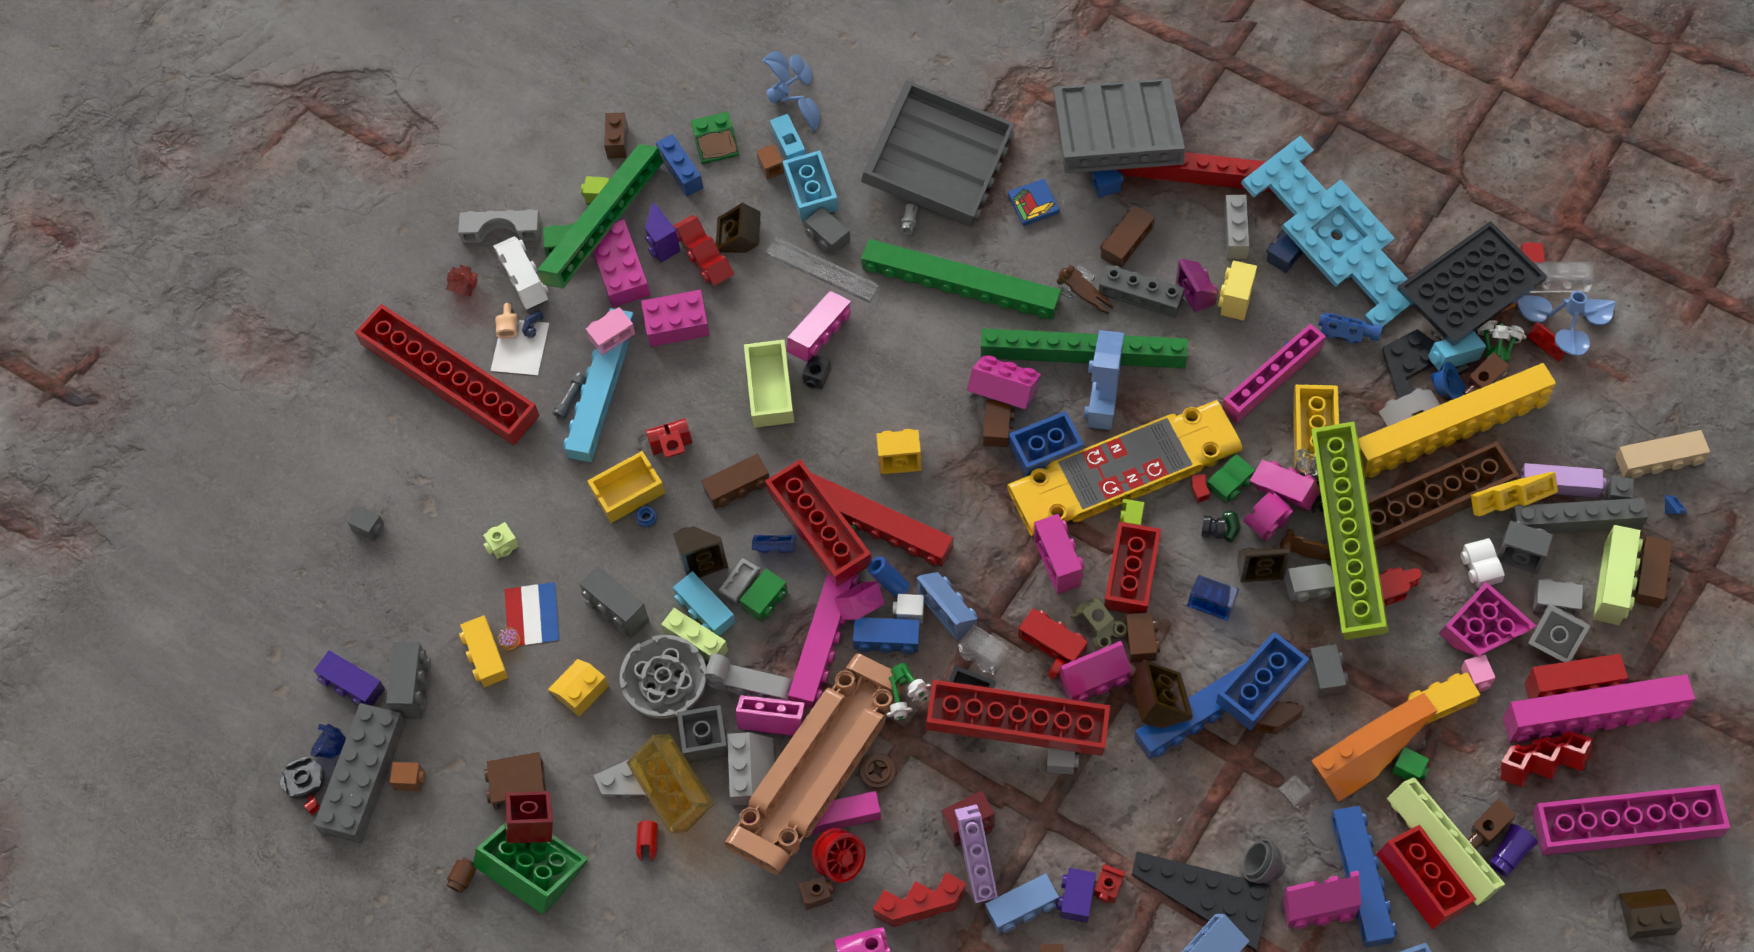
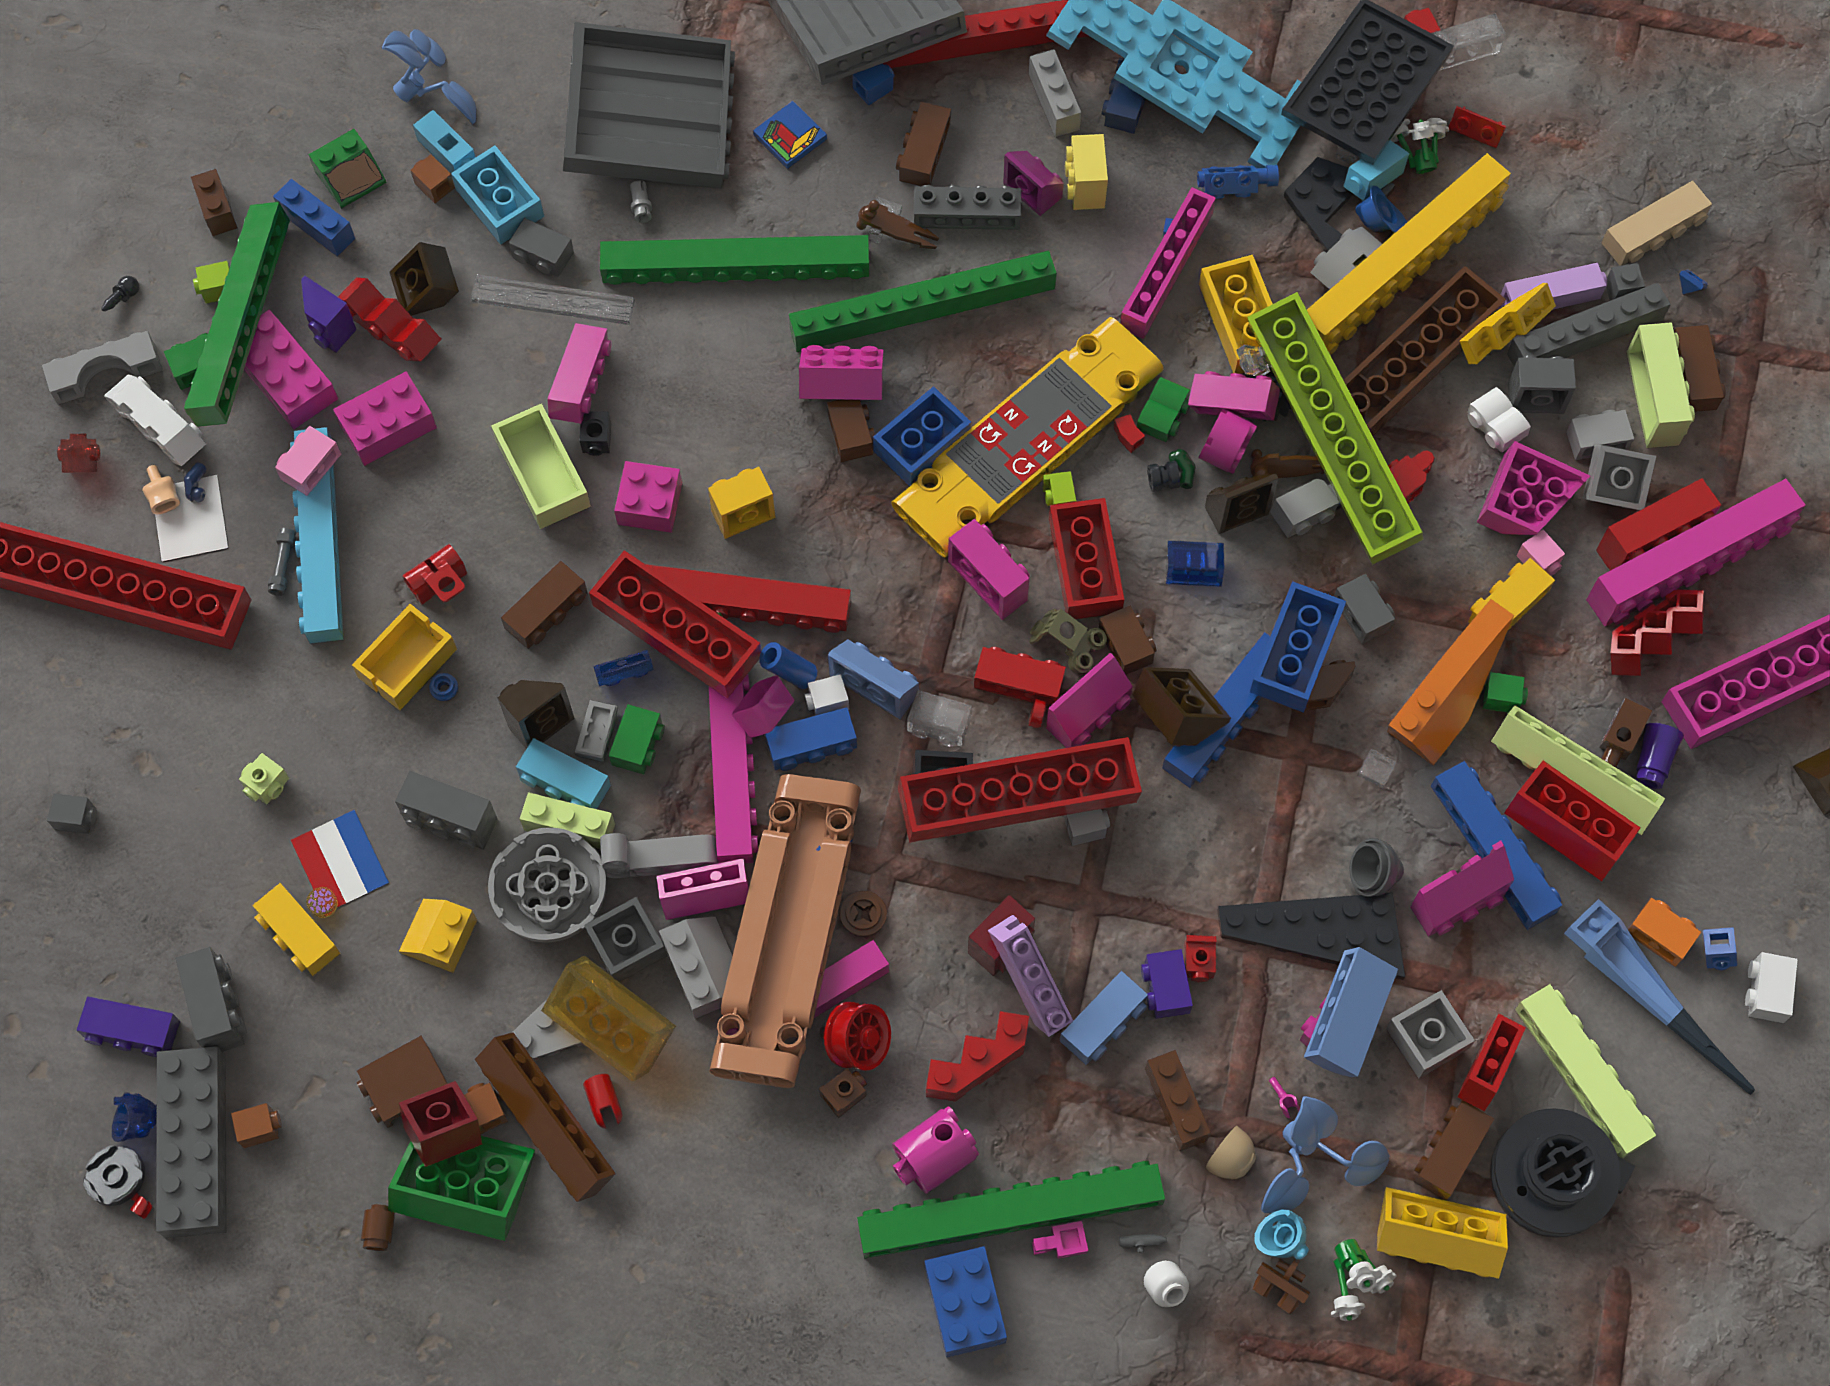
camera: 25 degrees left, 5 degrees up
(536, 177) = (126, 288): none -> black bar
(564, 817) = (485, 1106): none -> dark orange brick
(601, 837) = (545, 1117): none -> reddish brown brick
(836, 428) = (648, 496): none -> dark pink brick
(917, 690) = (882, 796): plant -> none
(1105, 378) = (967, 332): medium blue wedge -> none
(1489, 372) = (1423, 189): reddish brown torso -> none
(1572, 342) = (1518, 72): medium blue plant -> none

